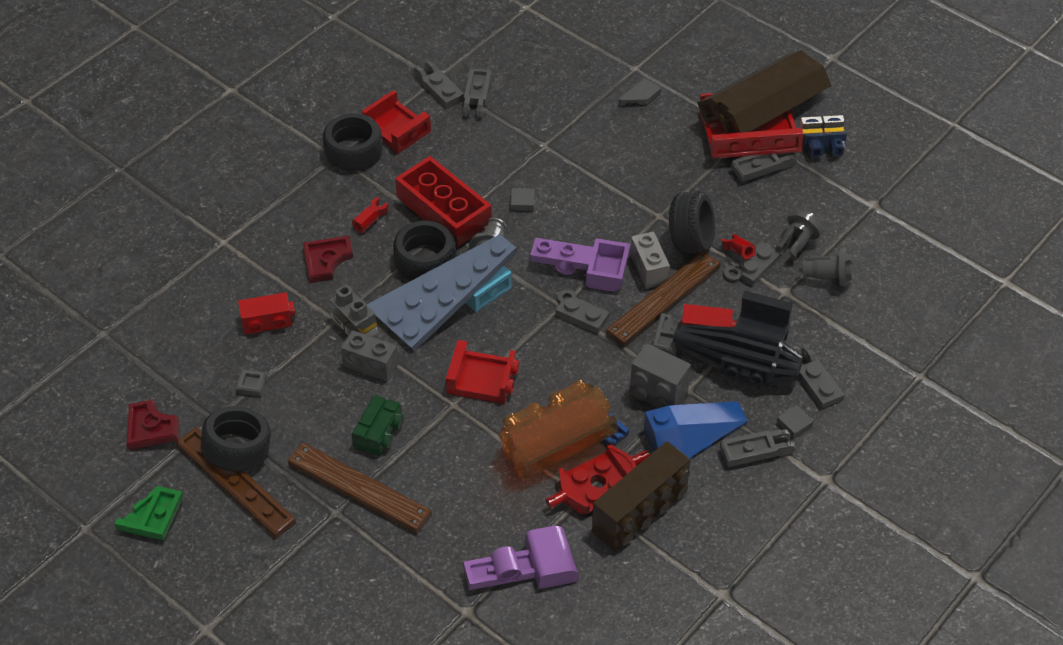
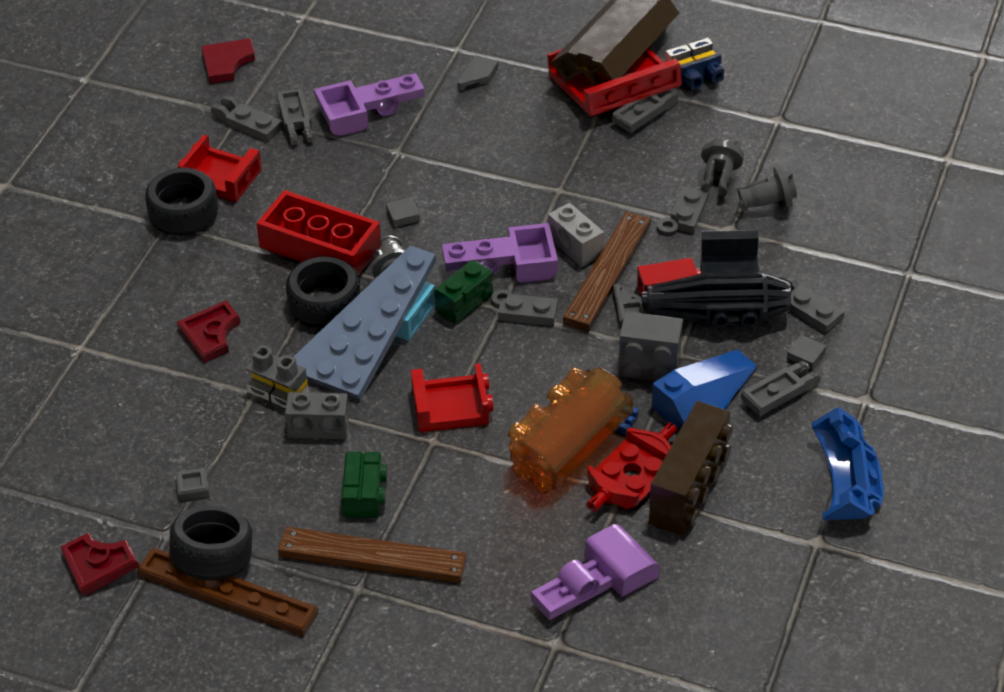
camera: 20 degrees left, 5 degrees down
(153, 514) = (150, 652): green wing -> none
(266, 313) = (173, 405): red brick -> none
(369, 215) = (239, 274): red bar -> none
(446, 27) = (226, 57): none -> dark red tile
(518, 93) = (347, 106): none -> medium lavender plate
(535, 283) = (463, 291): none -> dark green brick
(692, 222) = (606, 182): black tyre -> none
(739, 247) = (664, 196): red bar -> none
(784, 539) = (853, 467): none -> blue windscreen

